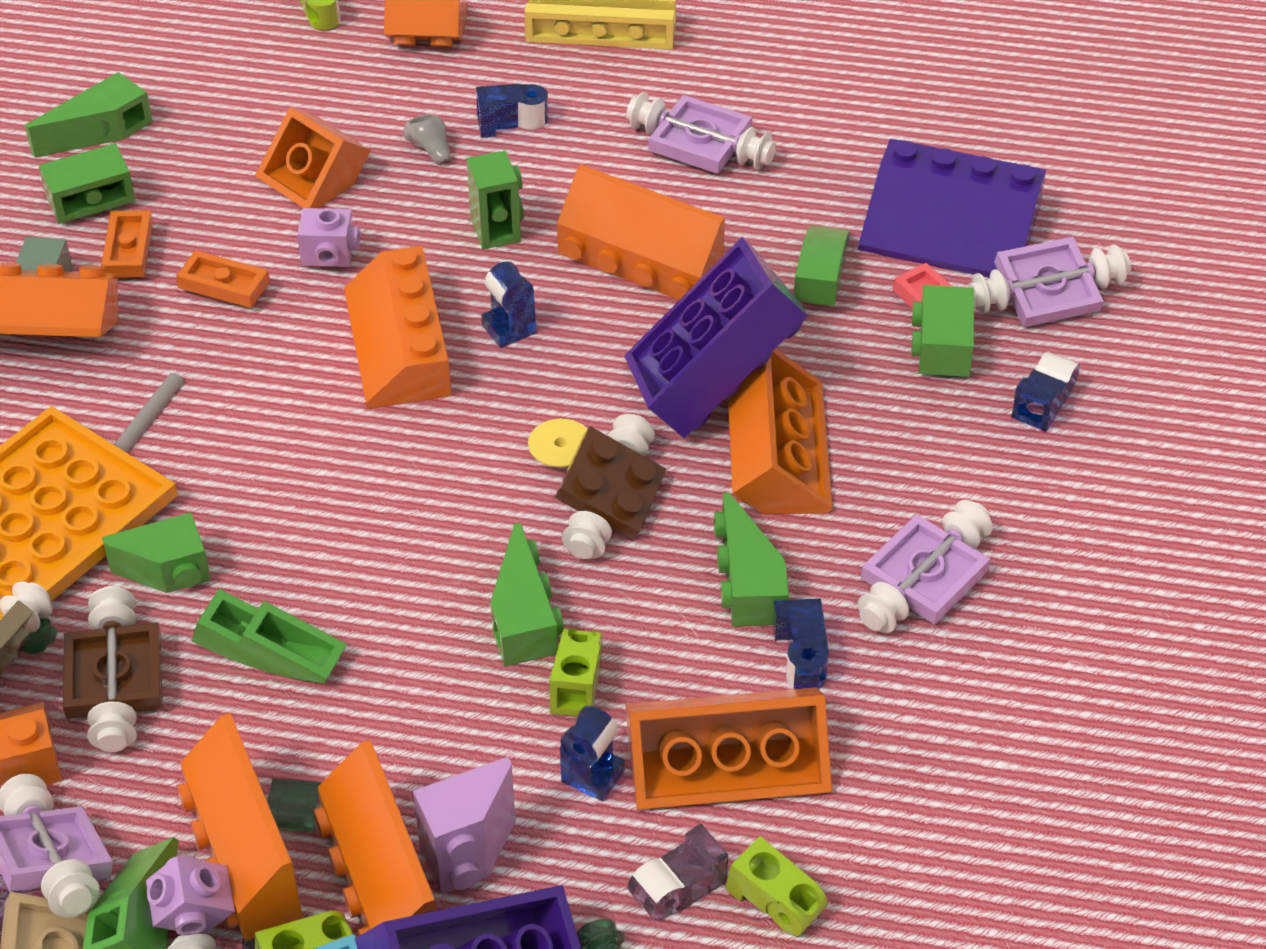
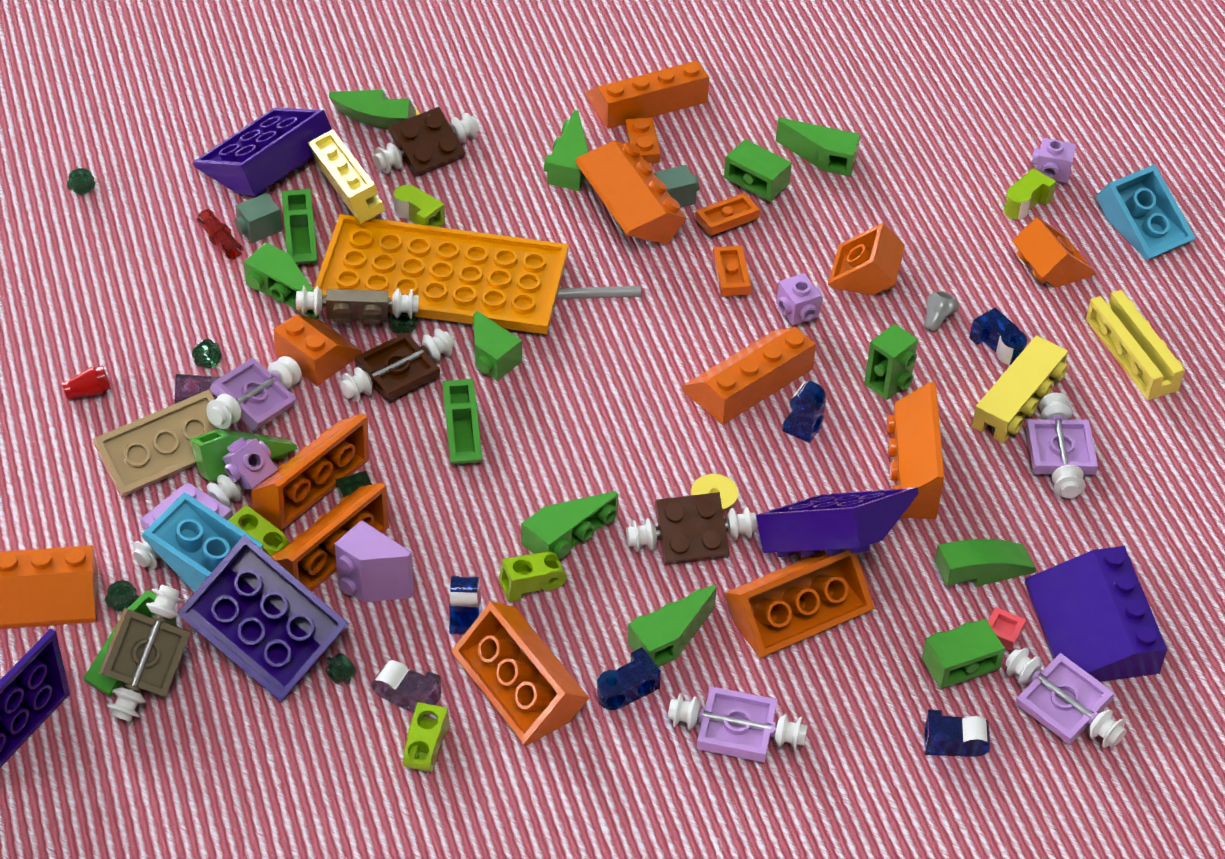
camera: 60 degrees right, 0 degrees up
(599, 123) = (1021, 388): none -> light yellow brick

